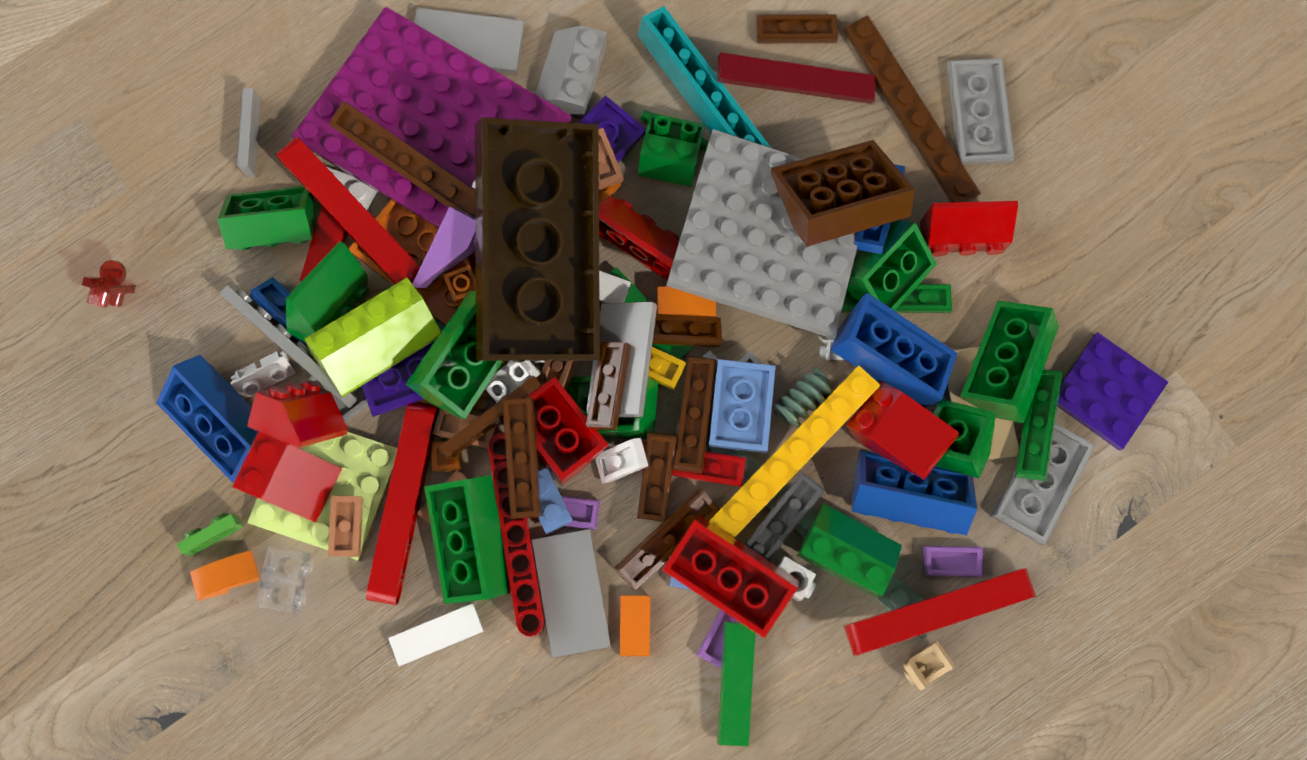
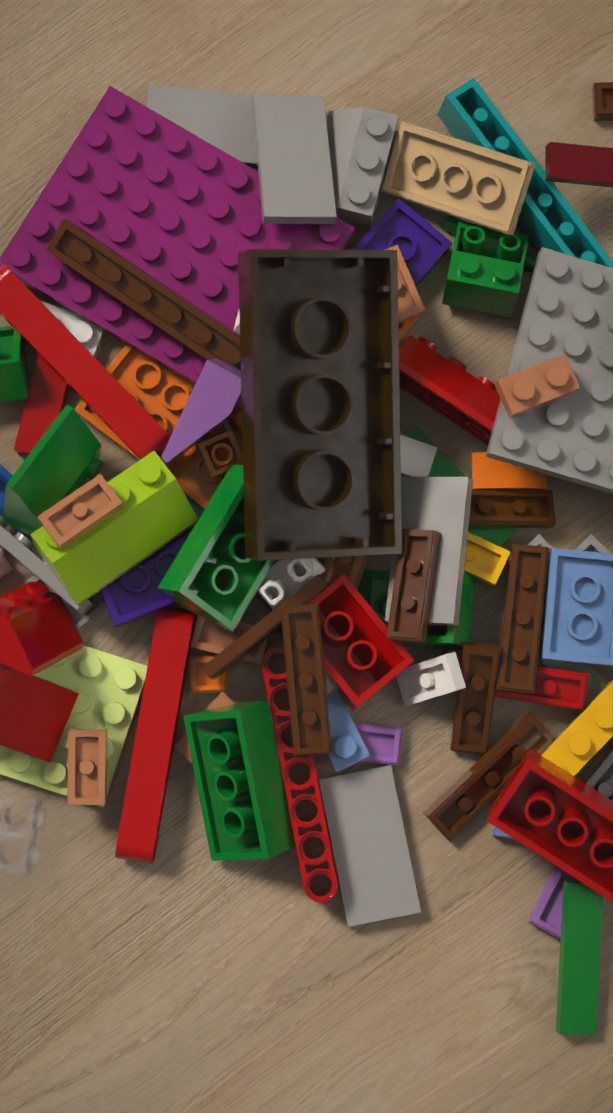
camera: 10 degrees right, 5 degrees up
(344, 320) = (80, 512): none -> nougat plate
(436, 634) = (203, 899): white tile -> none
(524, 63) = (293, 160): none -> light grey tile
(635, 626) = (450, 885): orange tile -> none
(650, 79) = (457, 177): none -> tan tile
(706, 231) = (537, 386): none -> nougat plate

